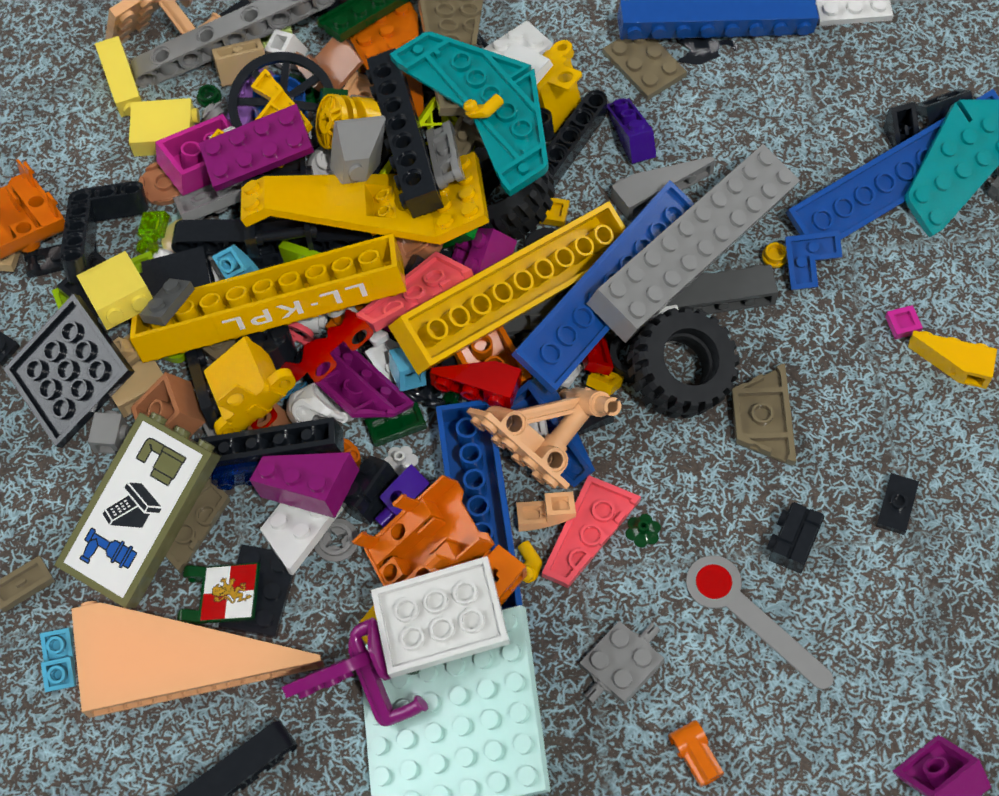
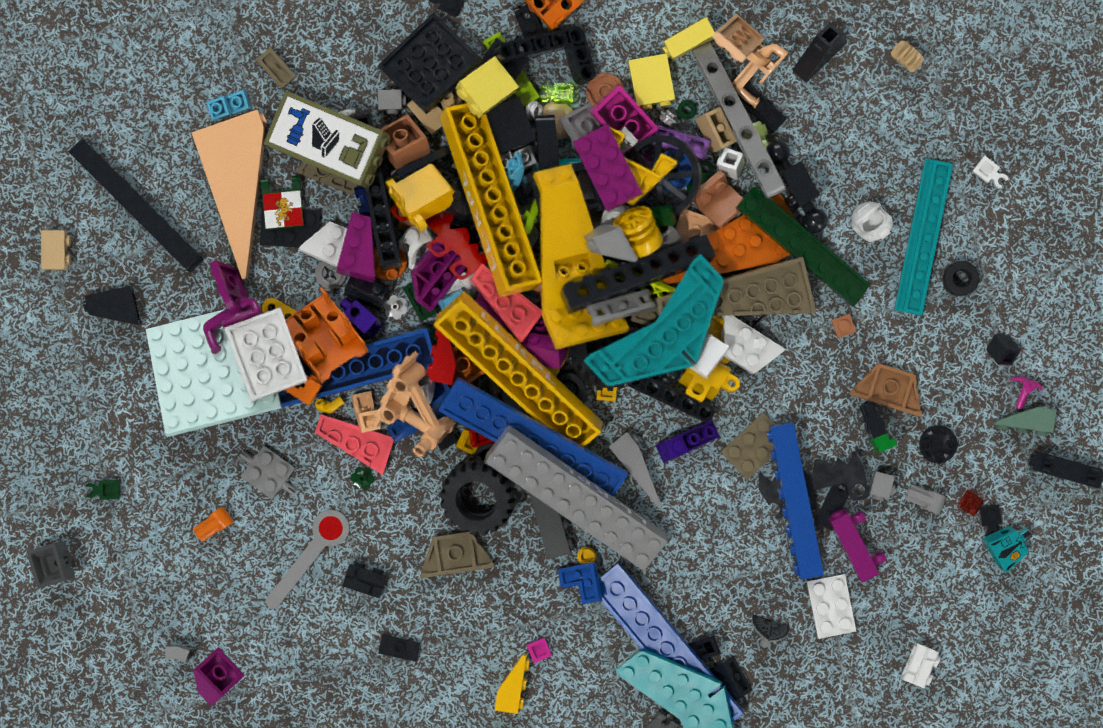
camera: 75 degrees right, 25 degrees up
(167, 302) = (478, 127): dark grey plate -> none
(484, 110) = (648, 332): yellow arm -> none
(885, 58) = (769, 630): none -> shield

